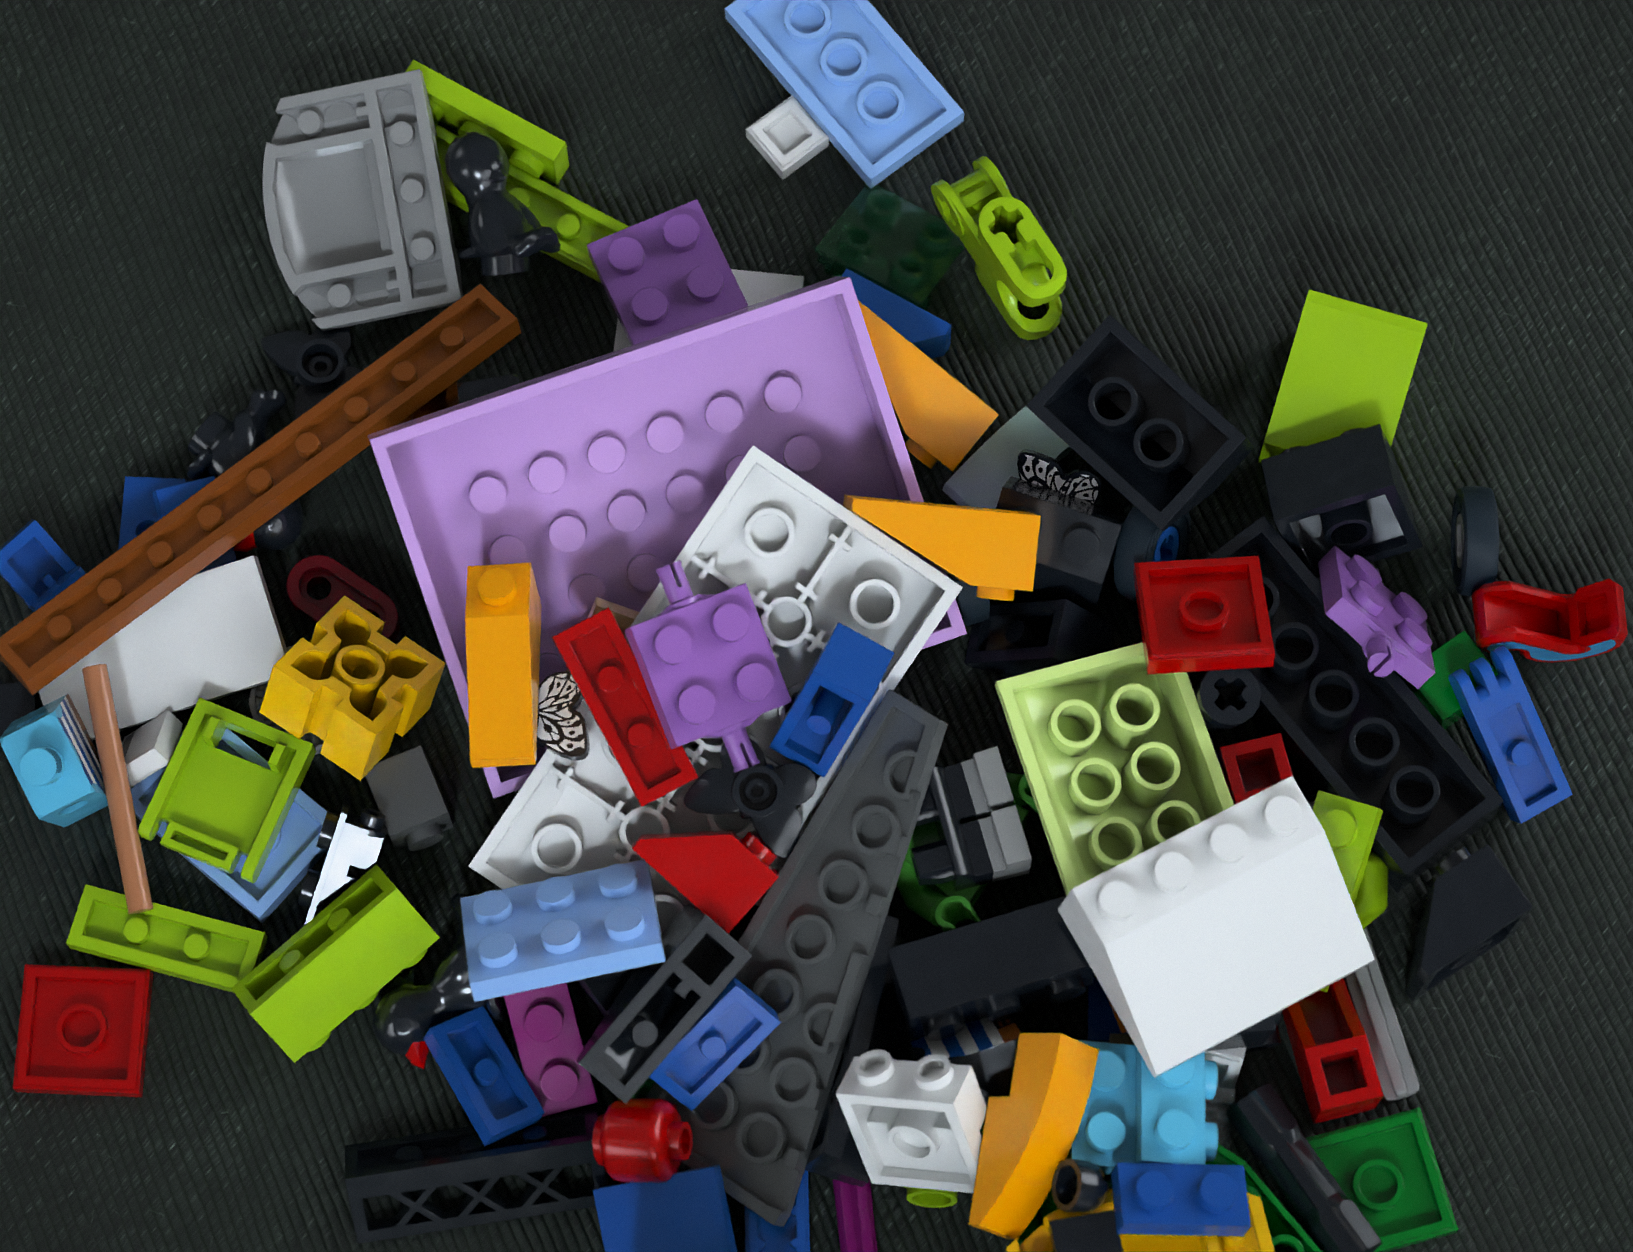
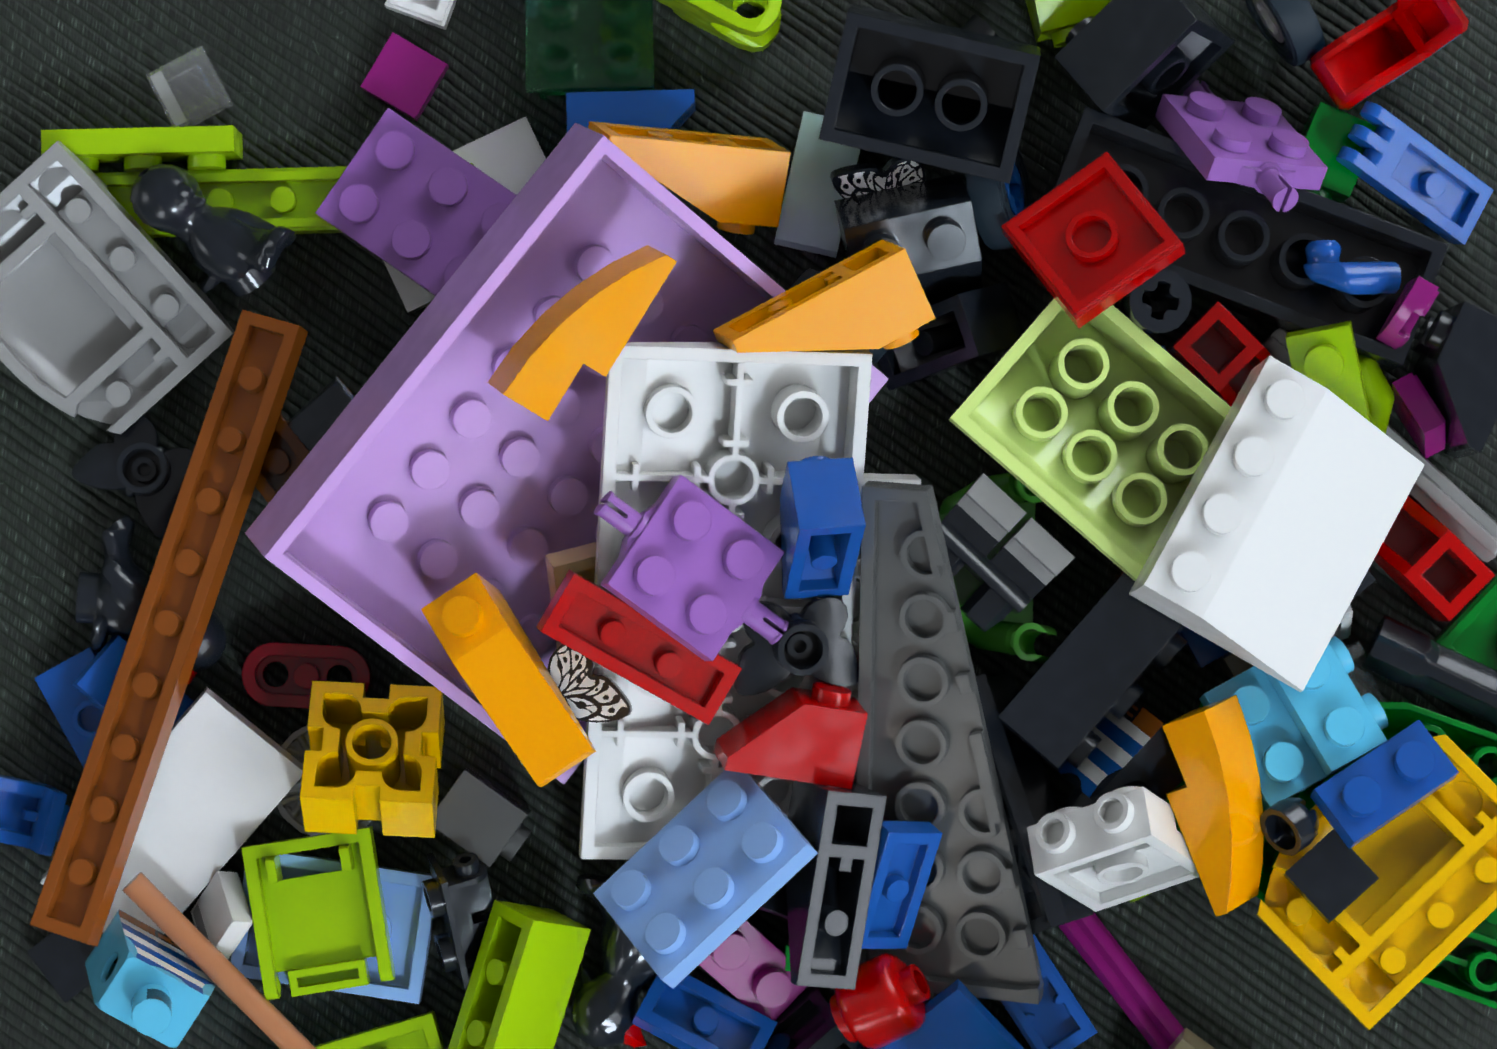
camera: 30 degrees left, 15 degrees up
(552, 103) = (189, 89): none -> clear tile
(727, 193) = (404, 76): none -> magenta tile
(735, 416) = (580, 329): none -> light orange slope
(1399, 937) = (1419, 415): none -> magenta tile
(1403, 772) = (1349, 277): none -> blue arm
(1434, 828) = (1412, 303): none -> magenta tile

